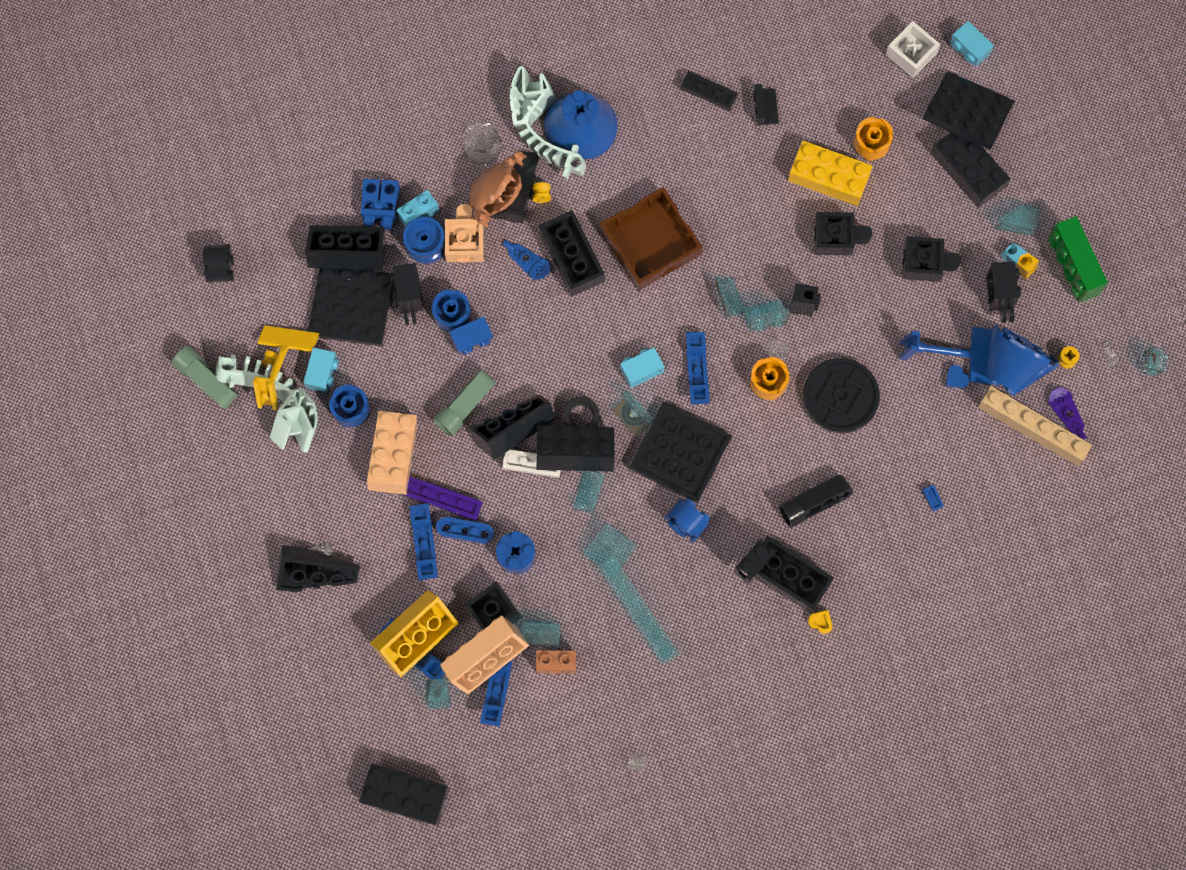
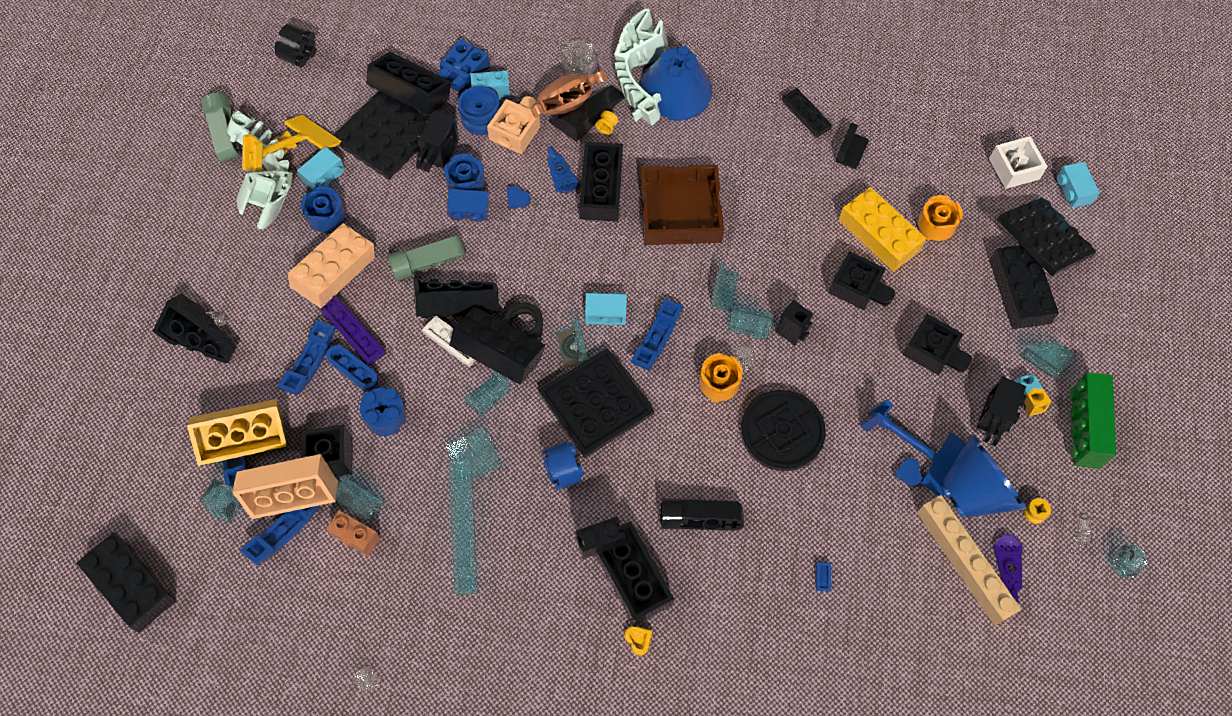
camera: 25 degrees right, 10 degrees down
(505, 305) = (517, 198): none -> blue tile

